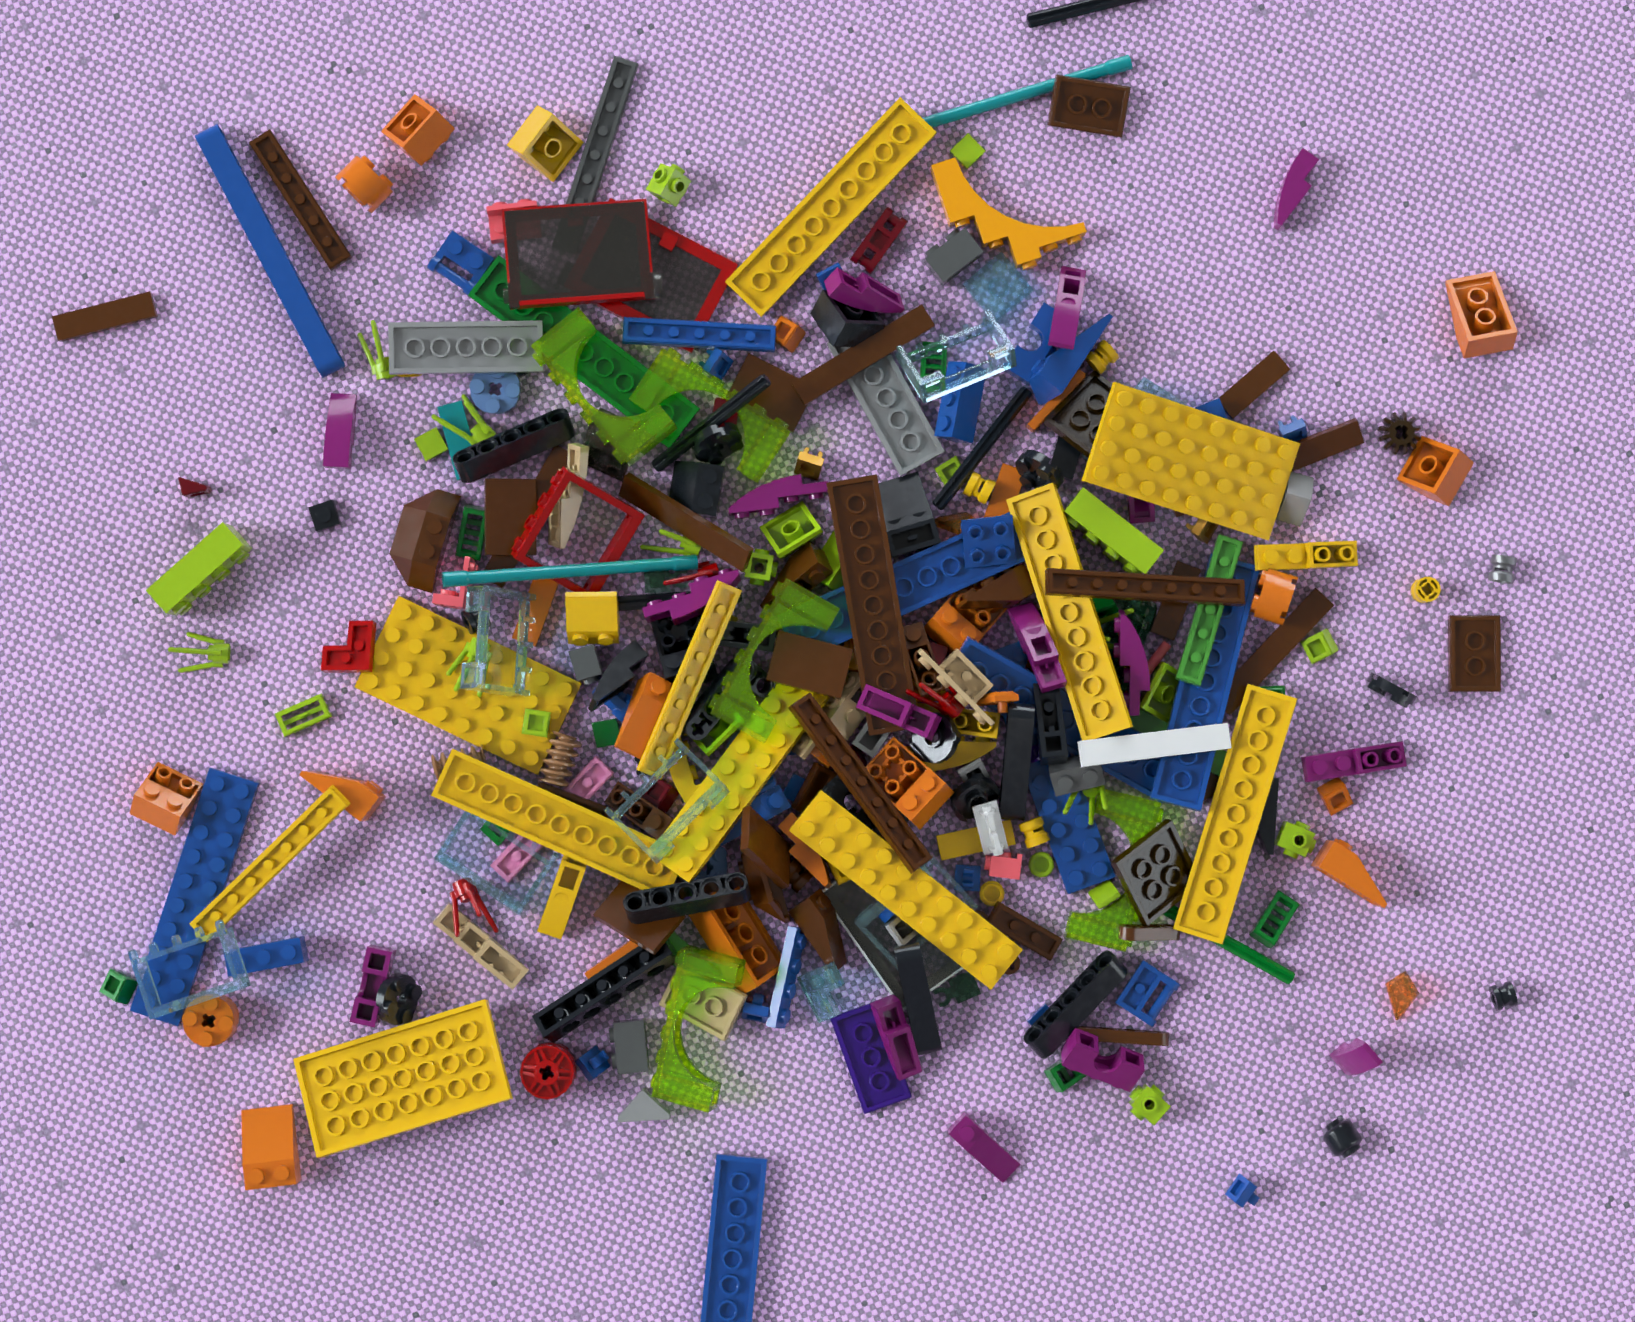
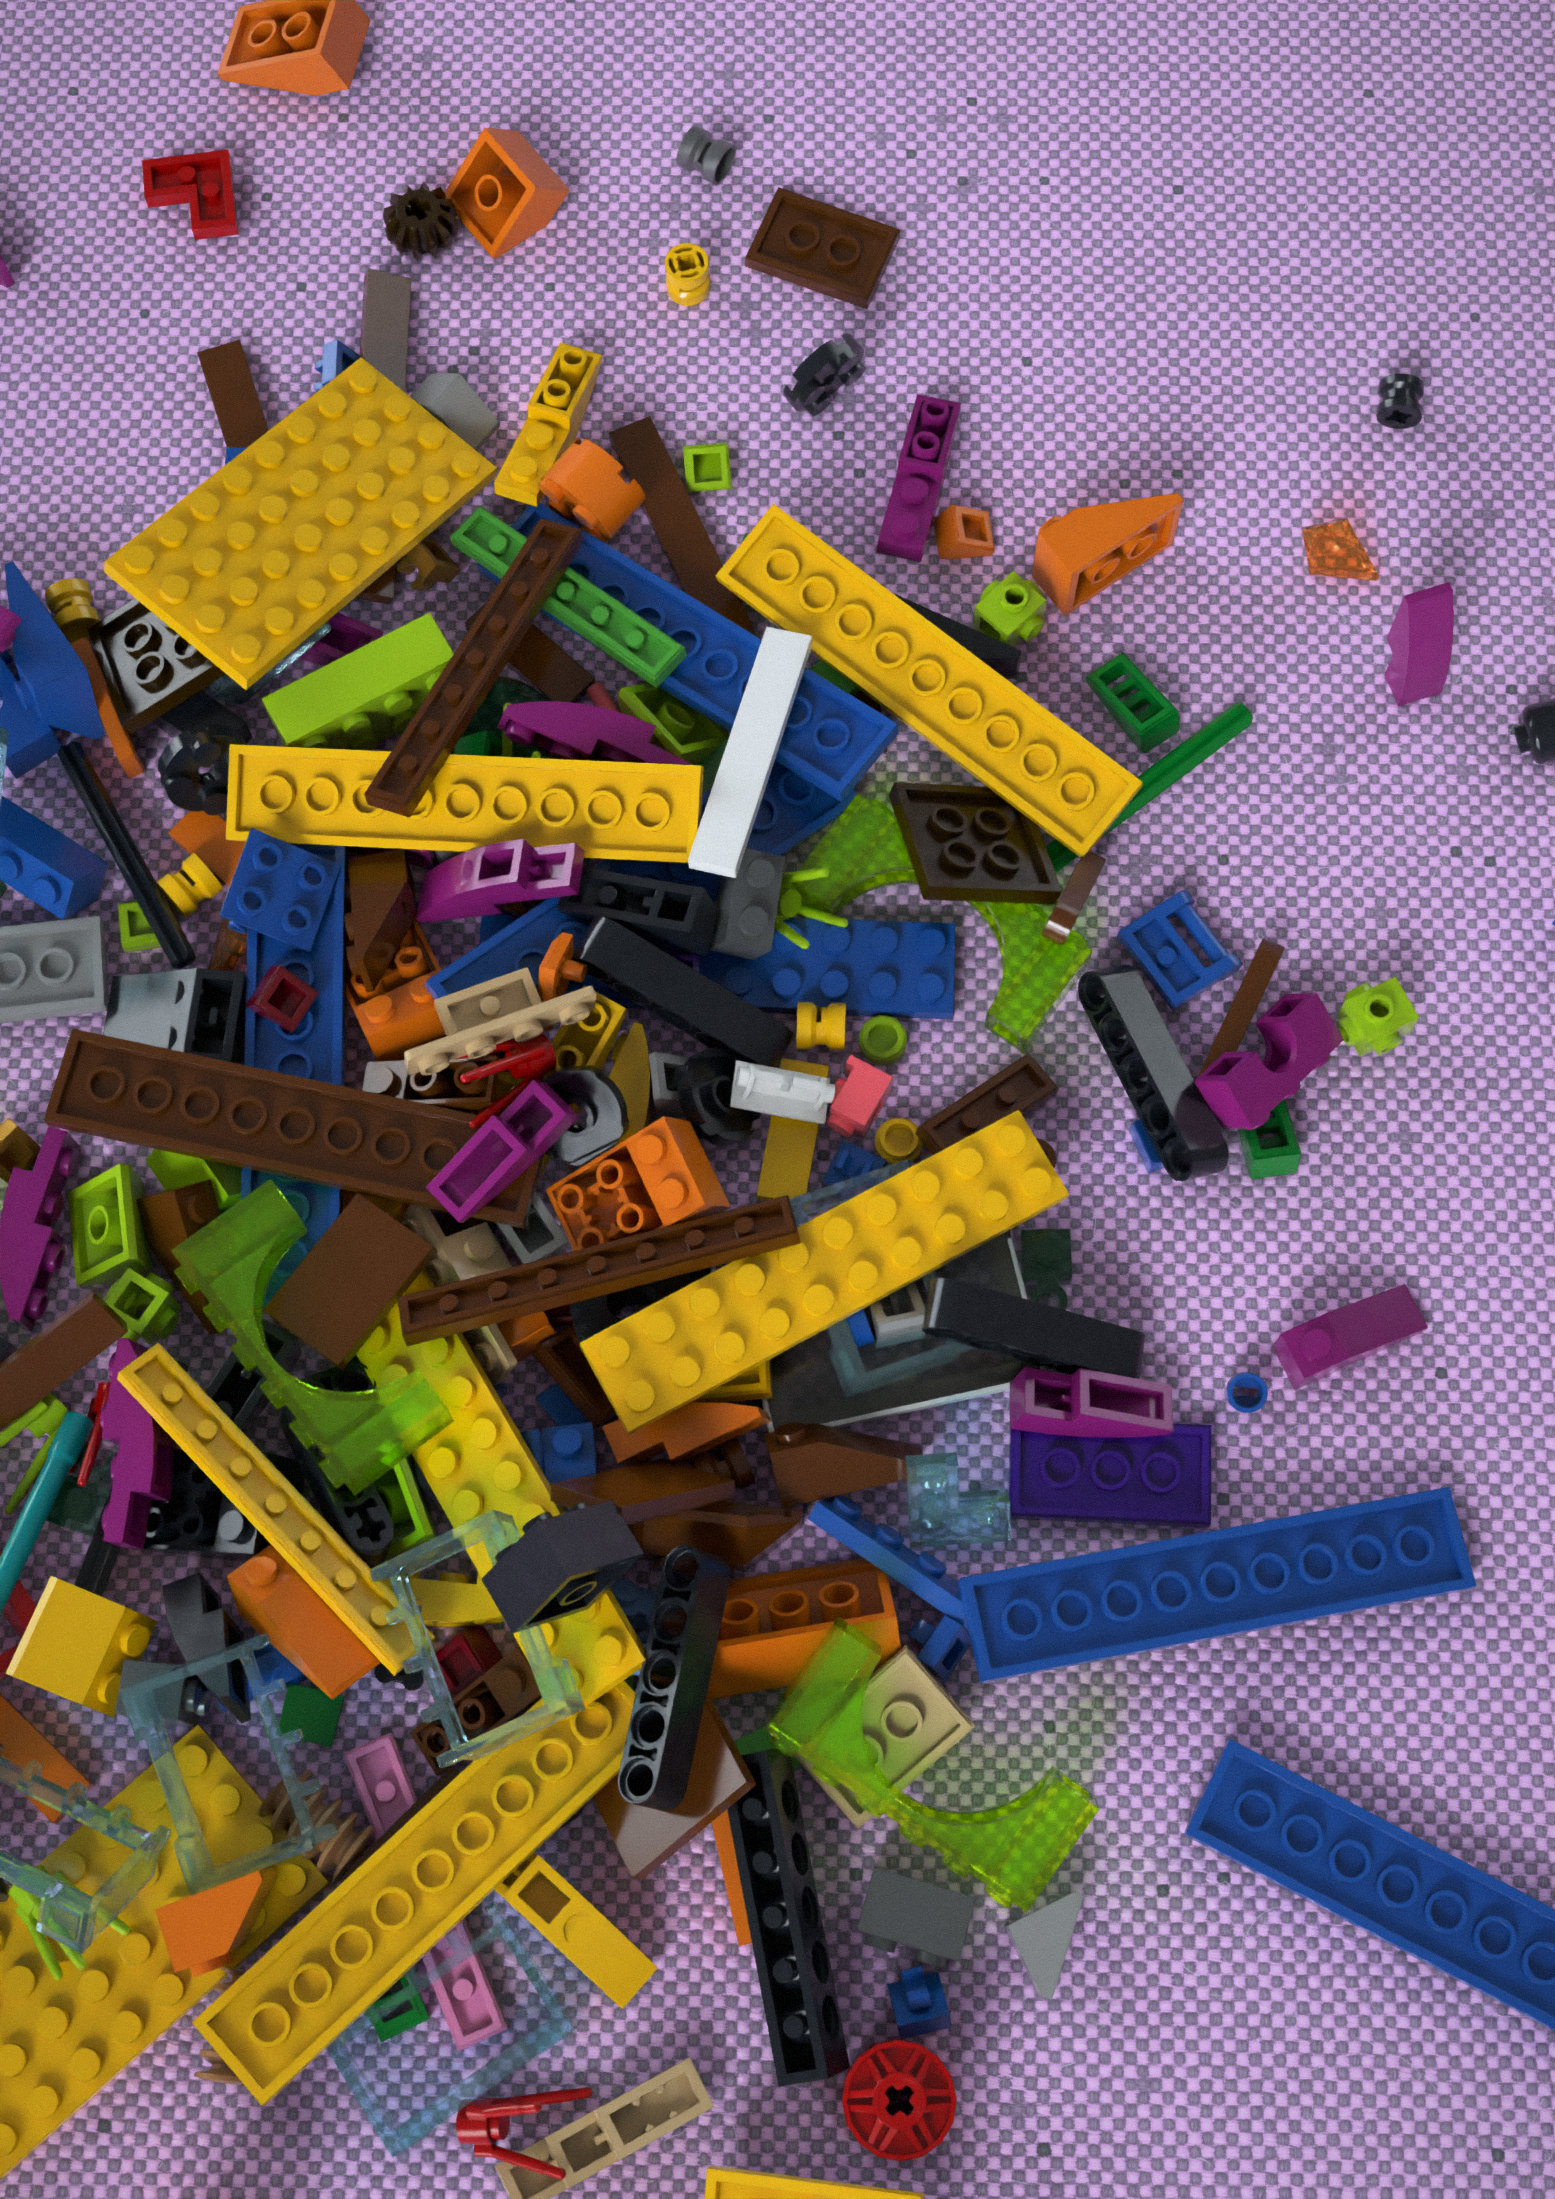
camera: 60 degrees left, 15 degrees down
(499, 736) = (214, 1922): none -> orange slope
(515, 723) = (190, 1844): none -> clear light blue hinge
(536, 722) = (230, 1835): lime tile -> none
(711, 830) = (561, 1564): none -> black brick
(835, 1128) = (1214, 1584): none -> blue plate
(929, 1108) = (1246, 1403): none -> blue hinge
(935, 565) = (282, 998): none -> dark red slope
(1104, 894) = (978, 954): lime slope -> none
(1376, 303) = (196, 179): none -> red plate

